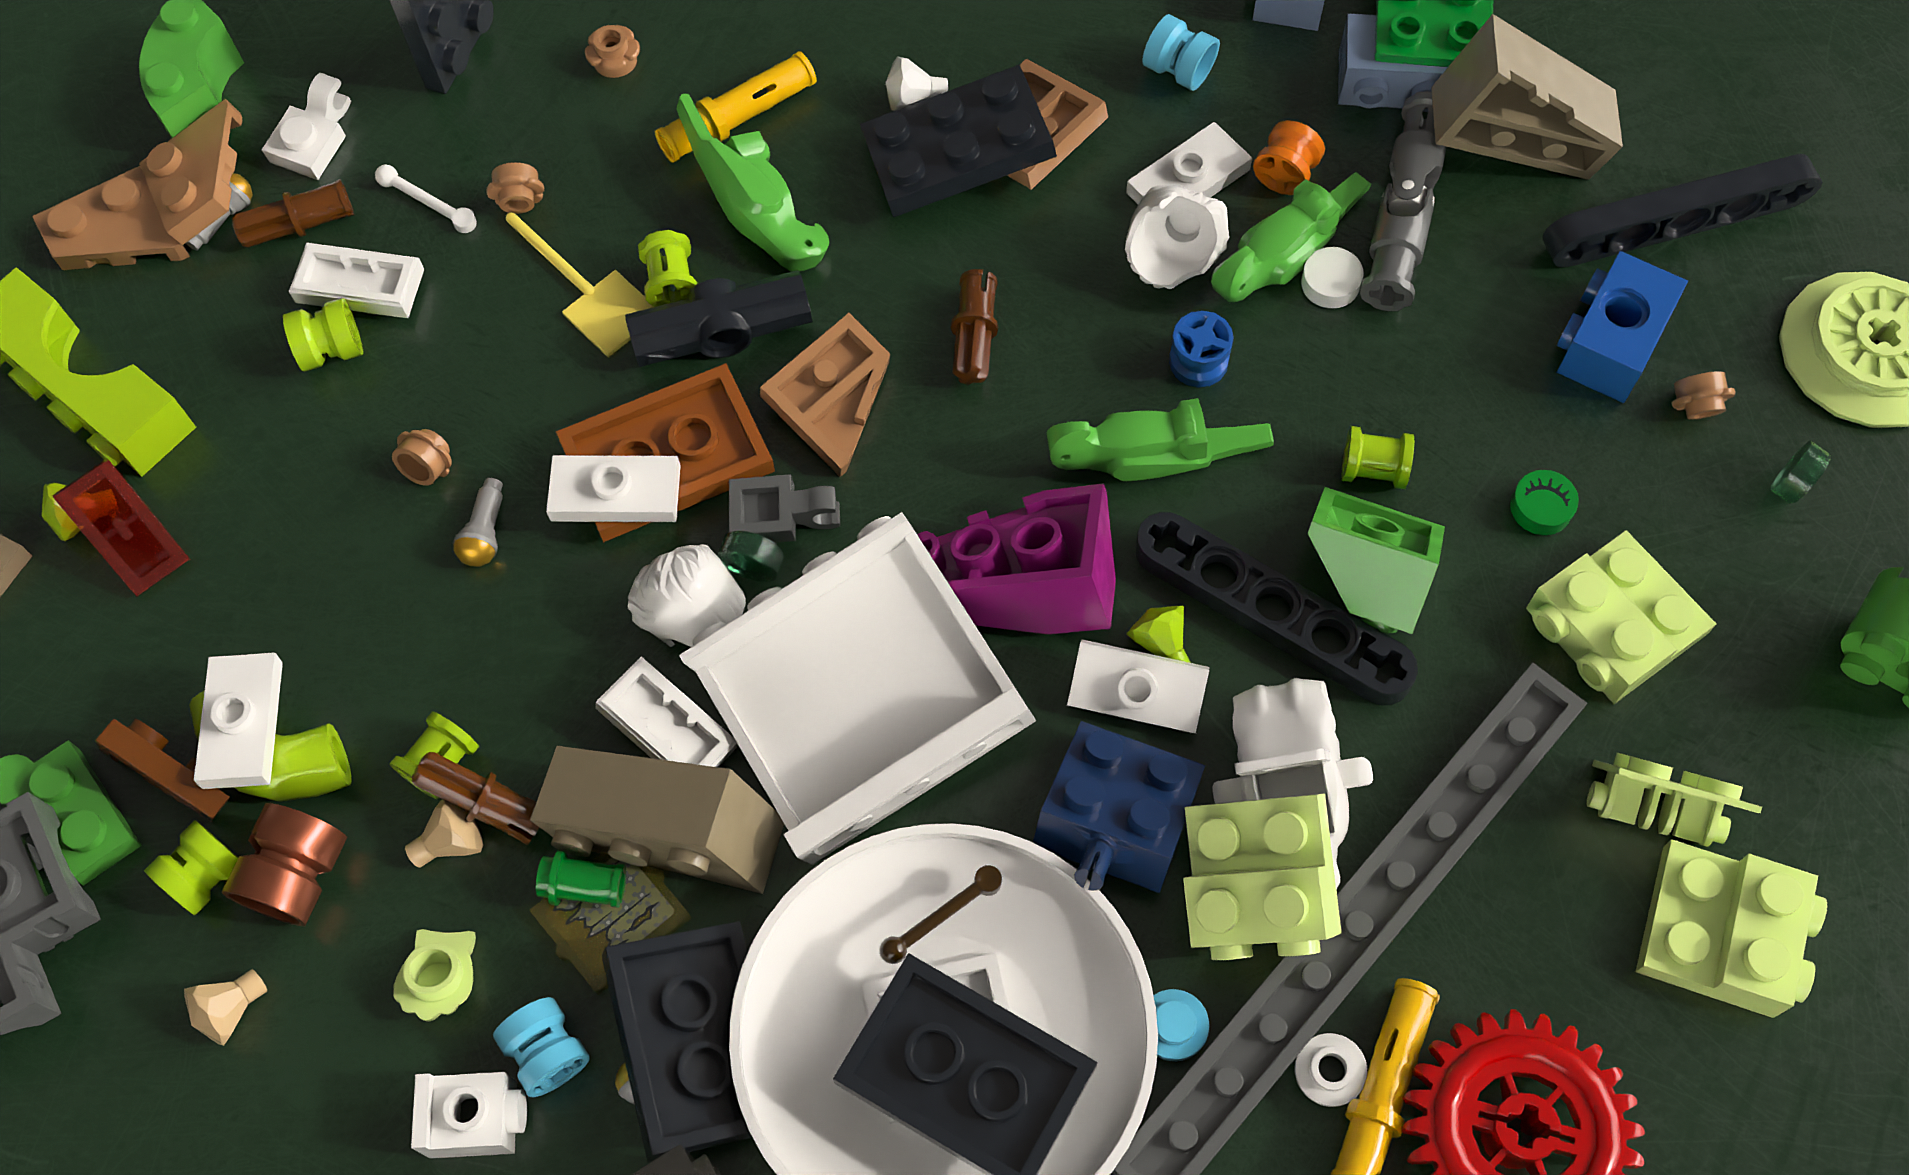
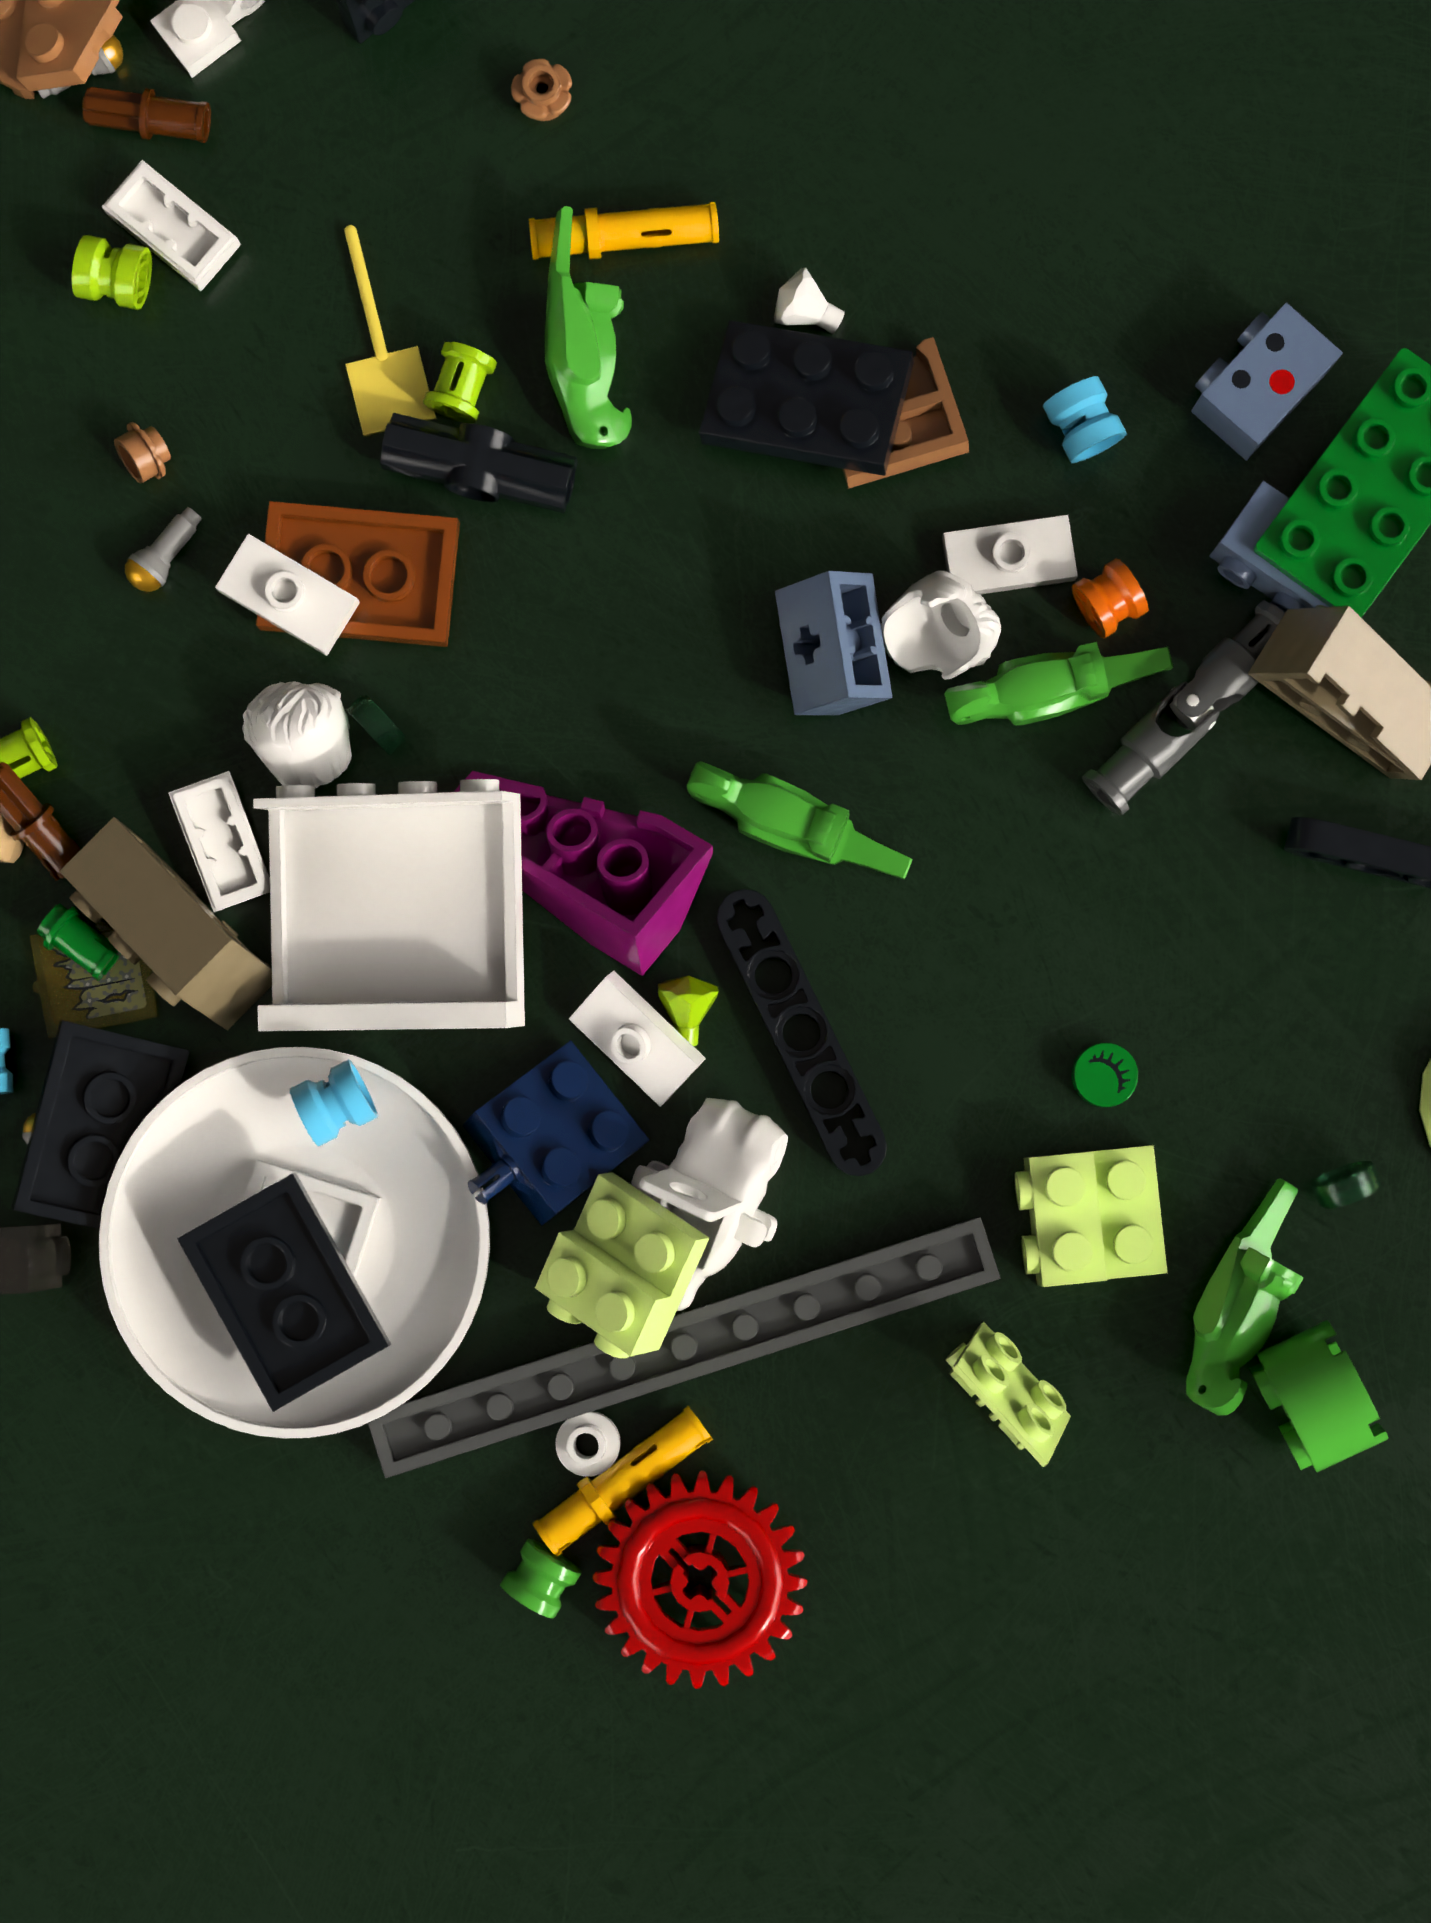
camera: 30 degrees right, 20 degrees up
(462, 218) = (303, 205): white hinge -> none
(515, 187) = (367, 205): medium nougat plate -> none
(773, 507) = (419, 687): dark grey plate -> none
(830, 390) = (539, 597): medium nougat wing -> none
(904, 875) = (328, 1105): none -> medium azure wheel
(974, 326) = (706, 606): reddish brown axle -> none
(986, 882) = (397, 1144): dark brown hinge -> none
(1097, 292) = (833, 643): none -> sand blue brick
(1180, 1025) = (491, 1337): medium azure plate -> none
(1192, 336) = (900, 735): blue wheel -> none
(1332, 277) = (1070, 744): white tile -> none
(1377, 558) = (915, 1039): bright green slope -> none
(1378, 457) = (983, 950): lime bush -> none
(1614, 356) = (1329, 943): blue brick -> none
(1702, 394) = (1318, 1060): medium nougat plate -> none
(1732, 928) = (986, 1523): yellowish green plate -> none
(1801, 615) = (1240, 1306): none -> bright green animal

